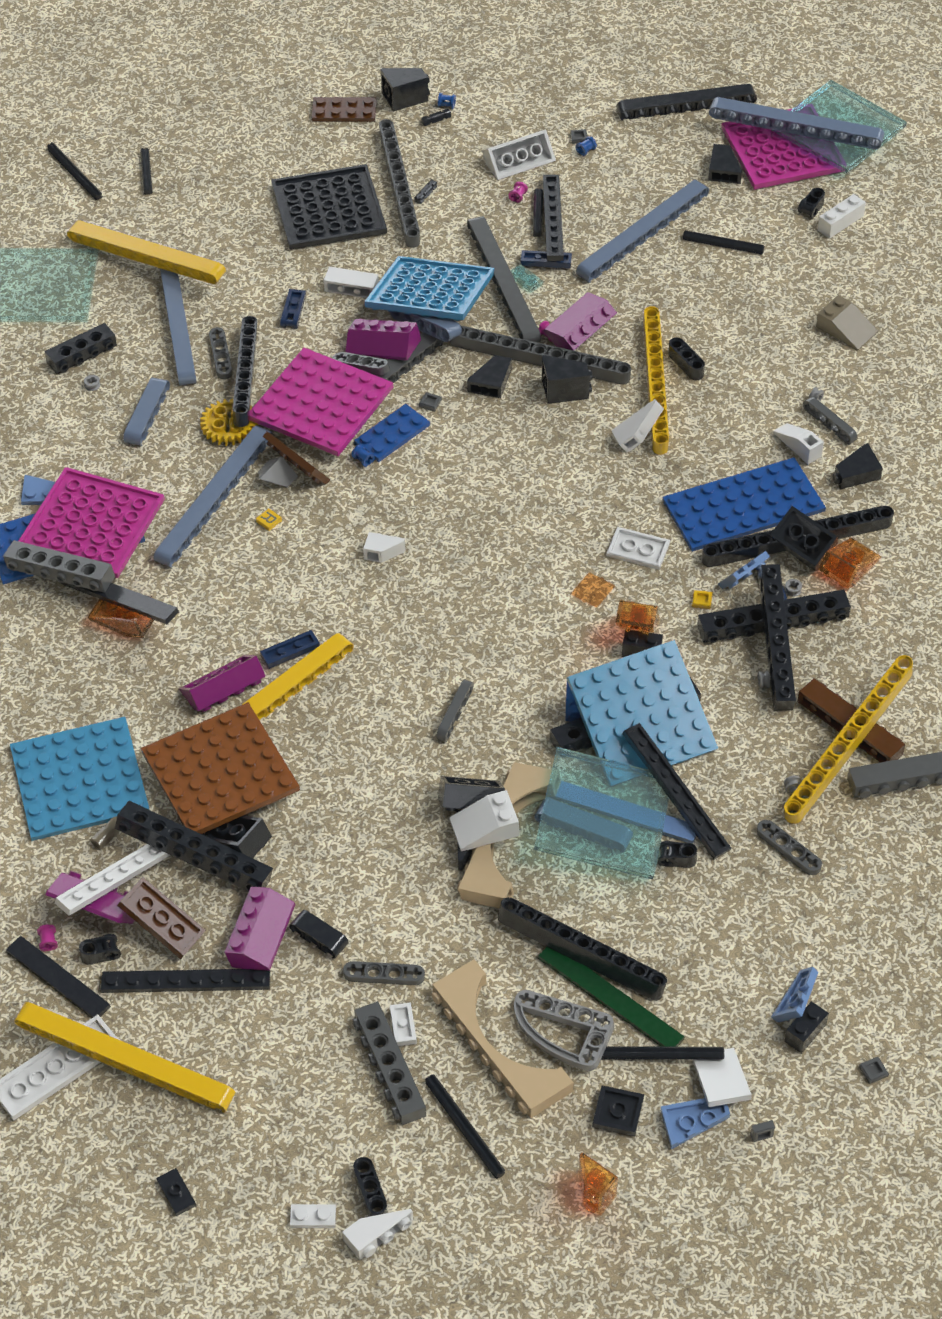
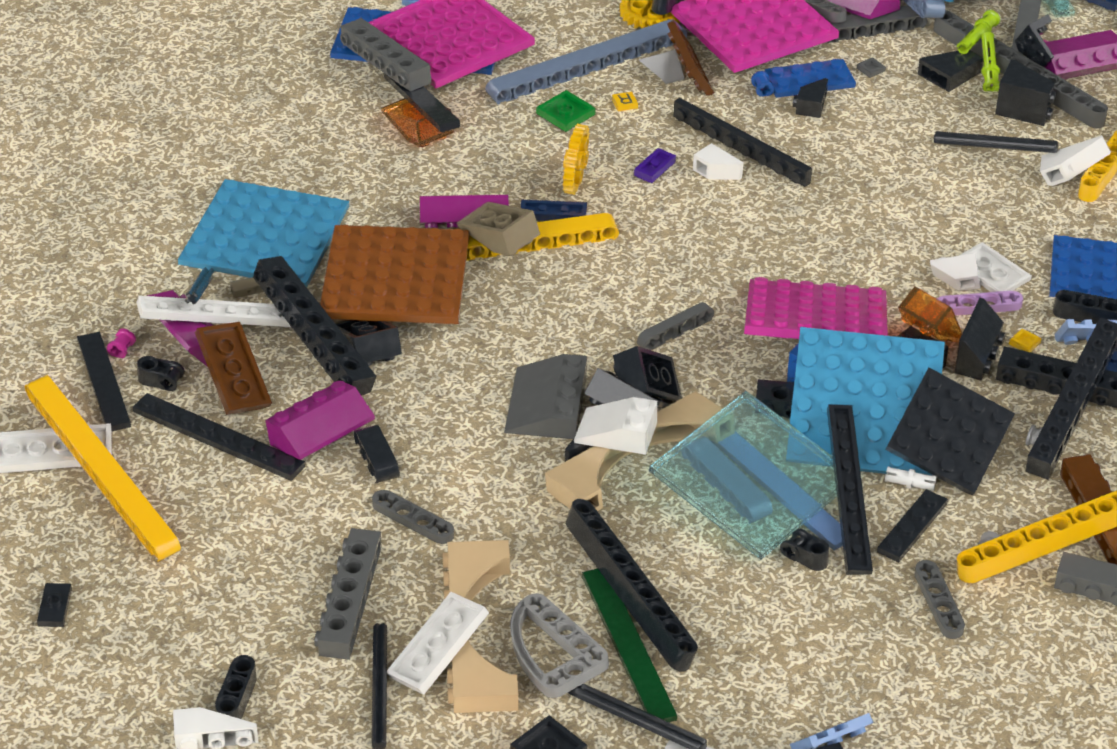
camera: 30 degrees right, 10 degrees down
(82, 859) = (199, 286): none -> black axle
(231, 550) = (565, 110): none -> green plate
(271, 688) = (501, 227): none -> dark tan slope
(284, 597) = (576, 159): none -> yellow gear
(313, 1216) = (163, 689): white plate -> none
(335, 570) = (654, 165): none -> dark purple plate
(384, 517) = (742, 142): none -> black plate
(403, 1024) = (392, 567): white plate -> none
(407, 819) = (548, 397): none -> dark grey slope
(410, 453) = (811, 98): none -> black slope
(476, 767) = (648, 372): none -> black slope
(489, 1072) = (437, 642): none -> white plate
(496, 332) = (985, 24): none -> lime pin
(523, 366) = (988, 42): none -> lime pin
(542, 331) = (1032, 44): none -> black bracket
(550, 649) = (784, 307): none -> dark pink plate
(571, 433) = (996, 142): none -> black axle
(593, 589) = (903, 284): clear orange piece -> none
(622, 563) = (957, 271): none -> white slope
(650, 582) = (995, 297): none -> lavender beam
(677, 618) = (979, 342): none -> black slope
(705, 758) = (910, 478): none -> white pin
(715, 708) = (950, 431): none -> black plate
(731, 796) = (912, 525): none -> black plate

